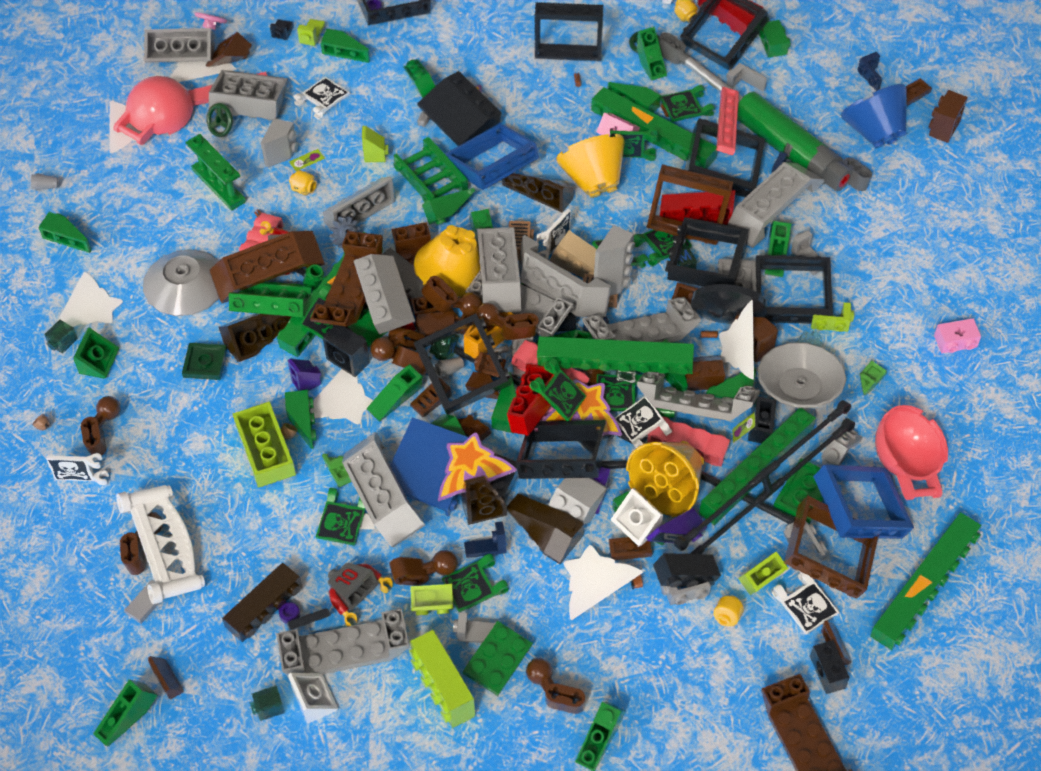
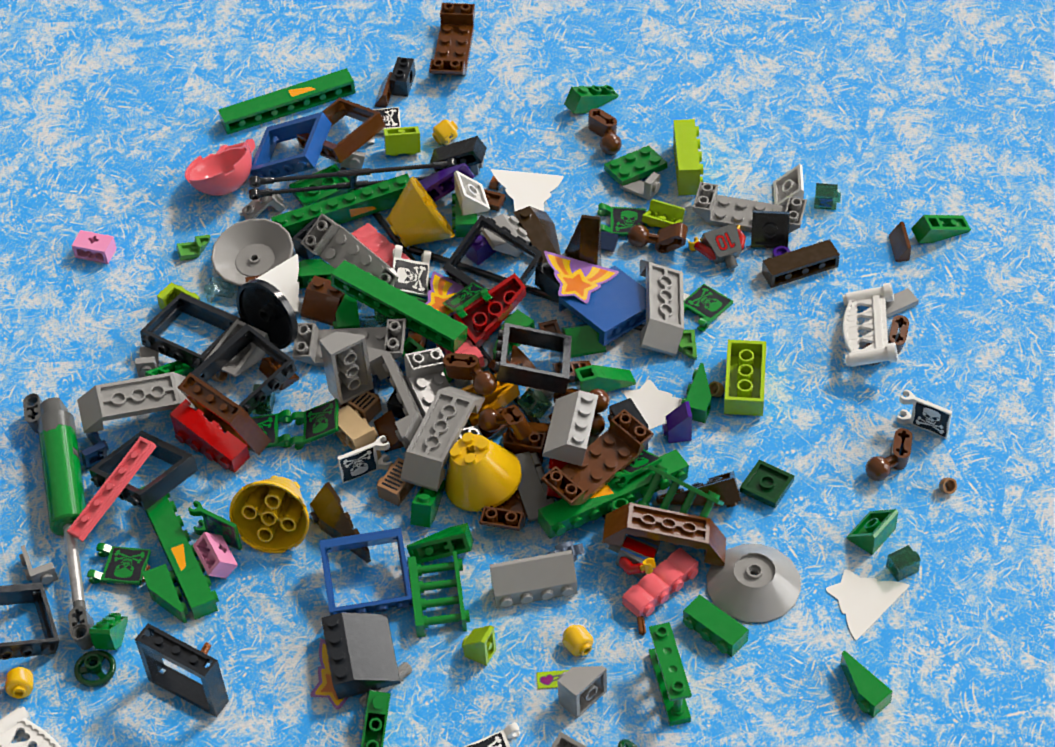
camera: 150 degrees left, 5 degrees down
(199, 231) = (715, 626): none -> green brick

